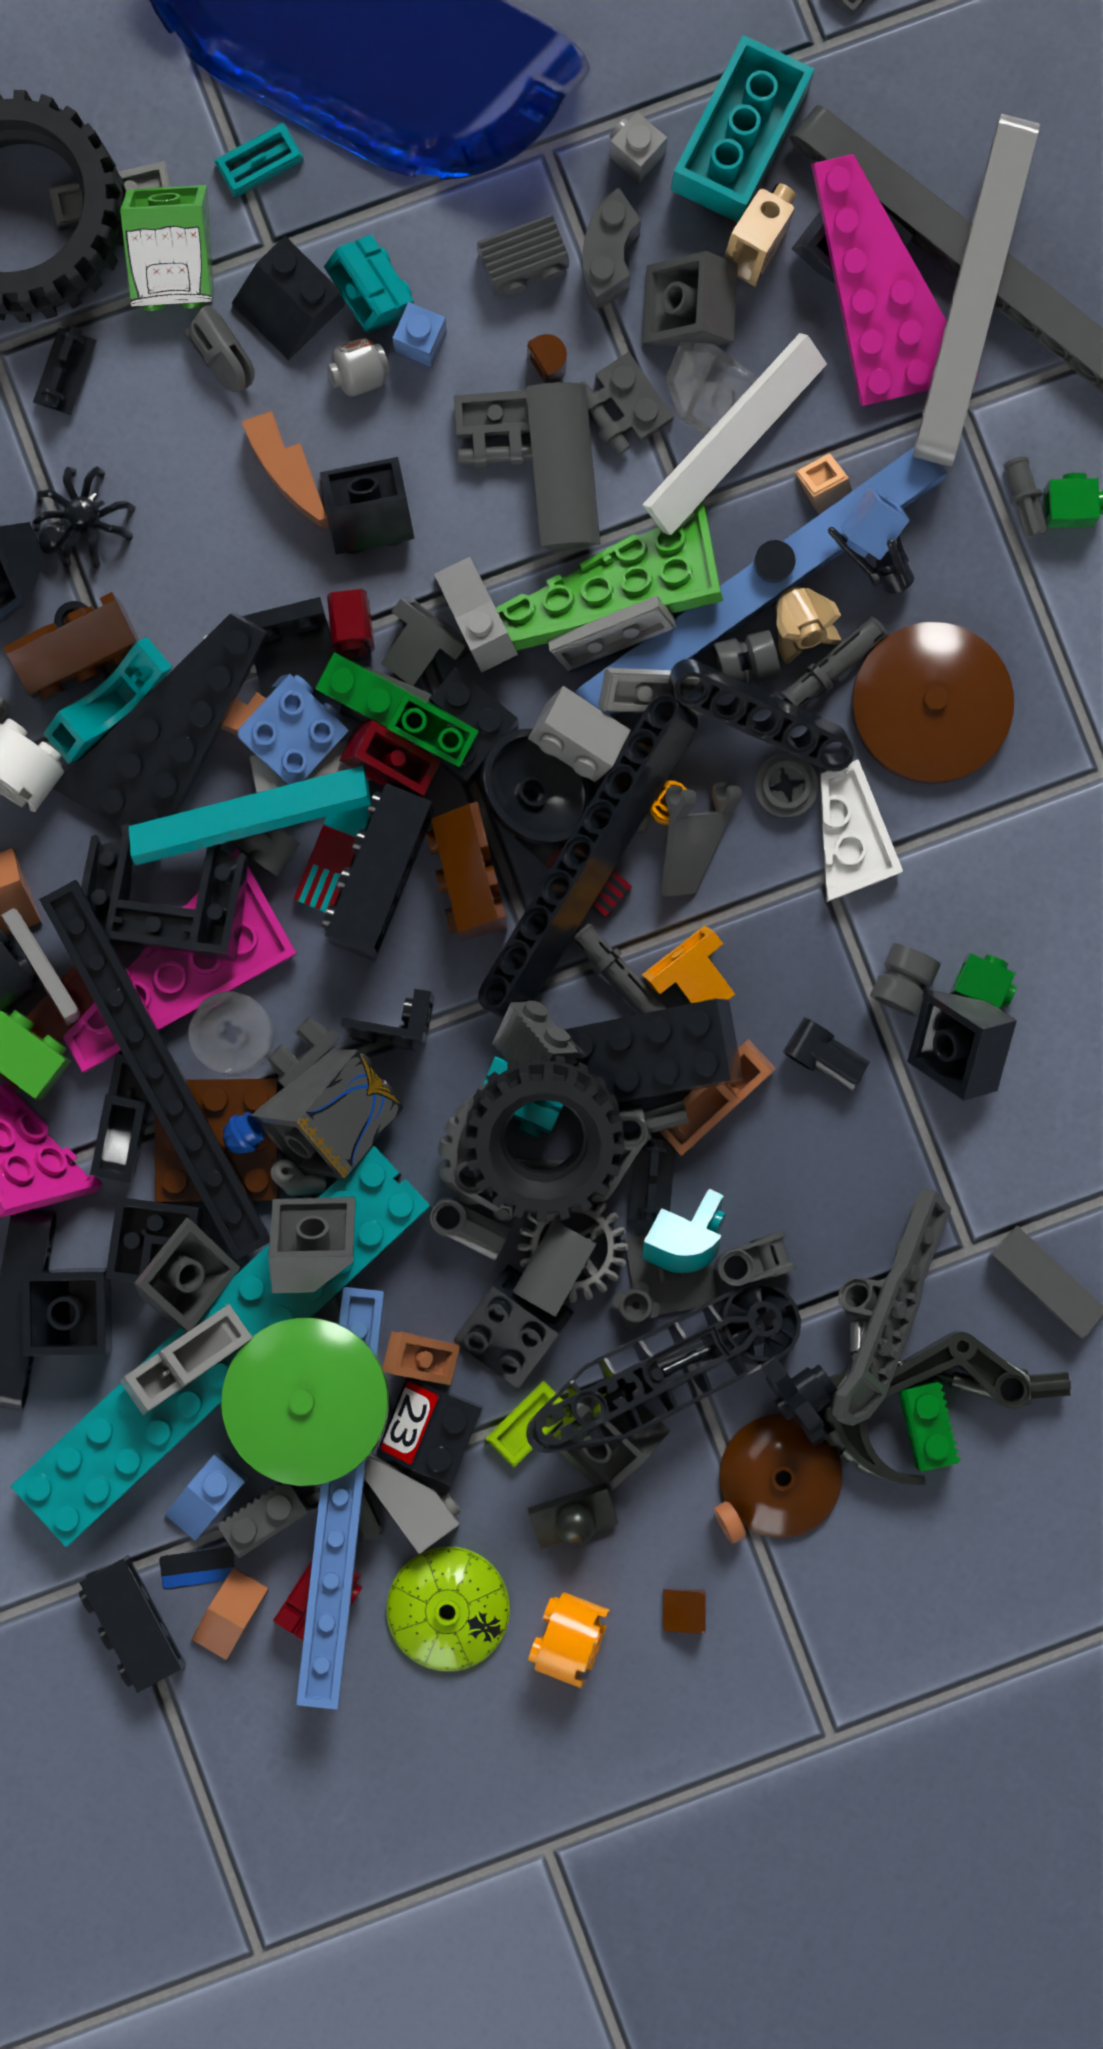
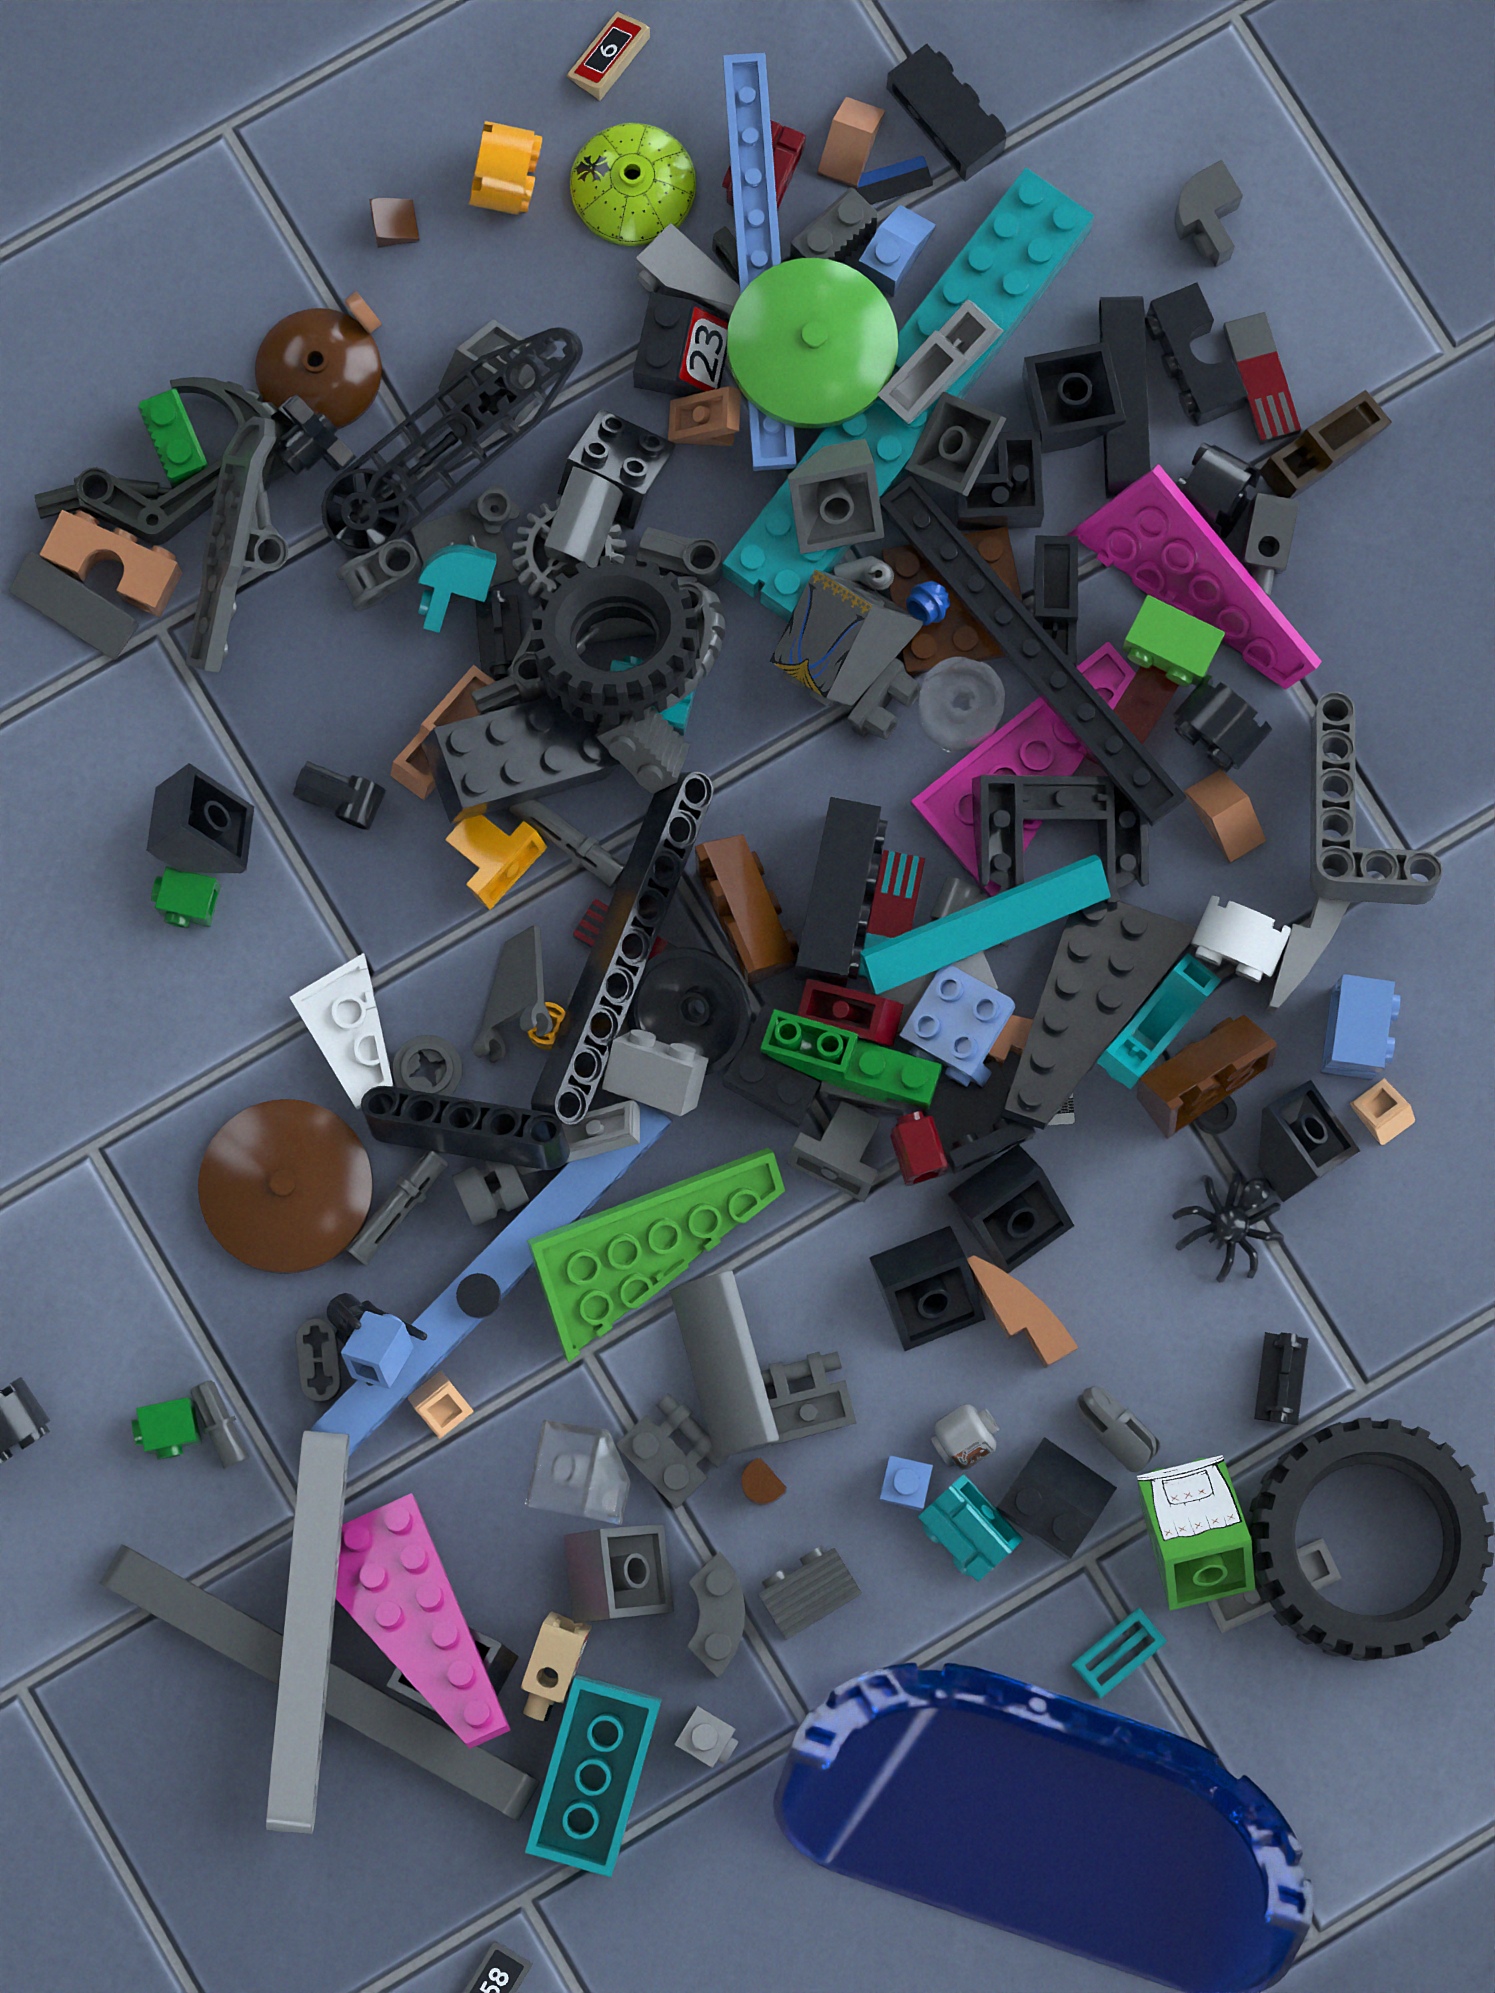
camera: 170 degrees right, 5 degrees down
(41, 966) = (1171, 734): light grey tile -> none
(278, 562) = (1011, 1208): none -> black slope
(415, 1014) = (784, 730): black bracket -> none
(448, 1744) = (609, 54): none -> slope
(475, 614) = (790, 1186): light grey slope -> none
(510, 1435) = (593, 371): lime tile -> none
(573, 1517) = (521, 290): pearl dark grey tile -> none
(612, 633) = (639, 1188): light grey tile -> none
(735, 434) = (544, 1433): white tile -> none
(804, 622) = (437, 1243): tan brick -> none
(905, 980) = (268, 887): dark grey wheel -> none
(936, 541) = (307, 1360): none -> dark grey beam
(975, 1298) = (79, 544): none -> nougat arch

